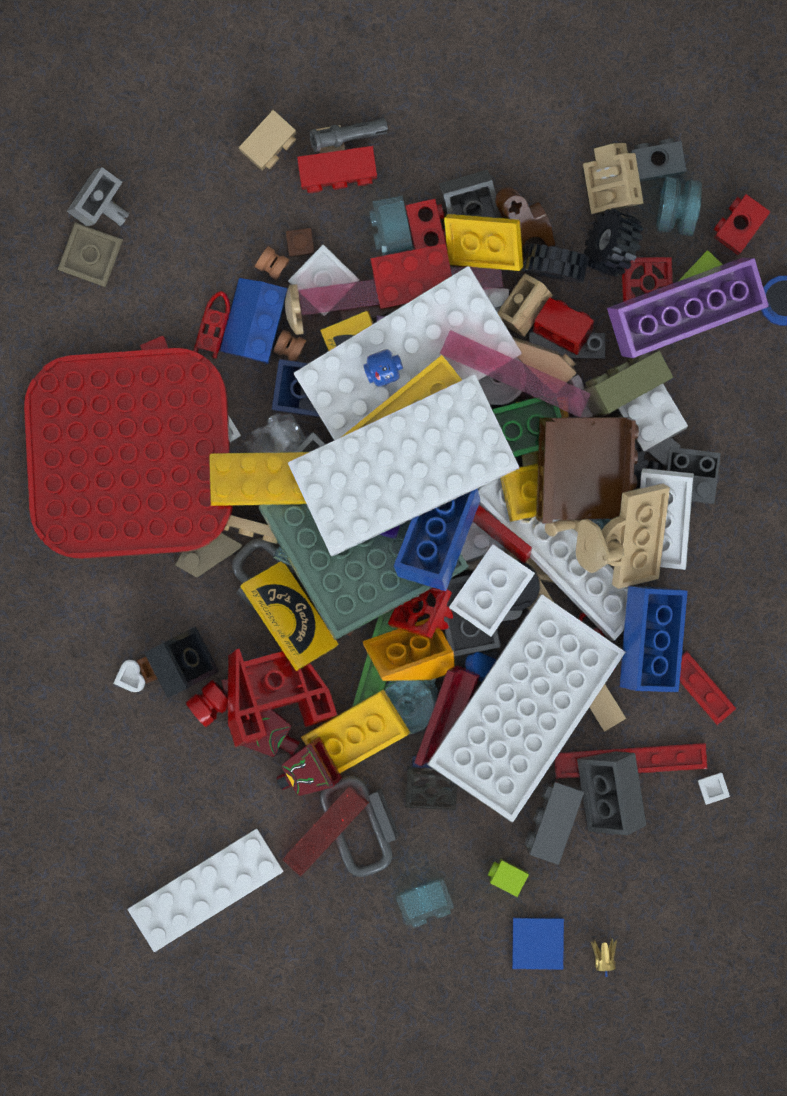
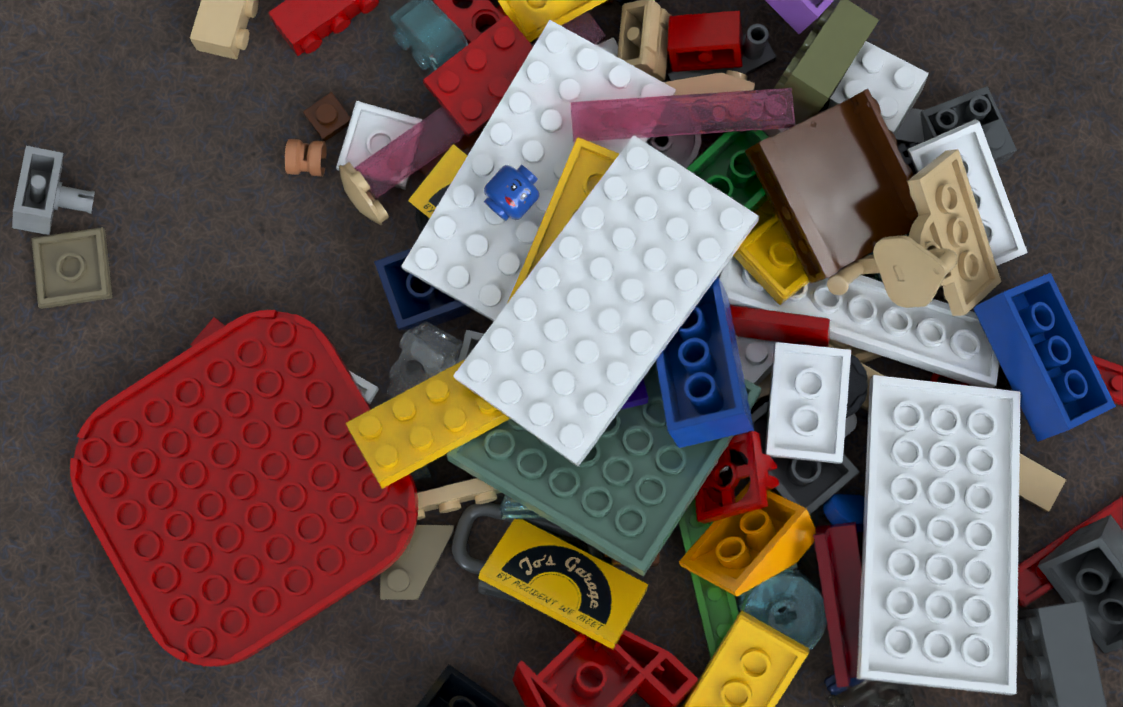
camera: 30 degrees left, 10 degrees down
(213, 319) = (269, 263): red piece -> none
(254, 320) = (320, 237): blue slope -> none
(295, 347) = (388, 239): nougat wheel -> none

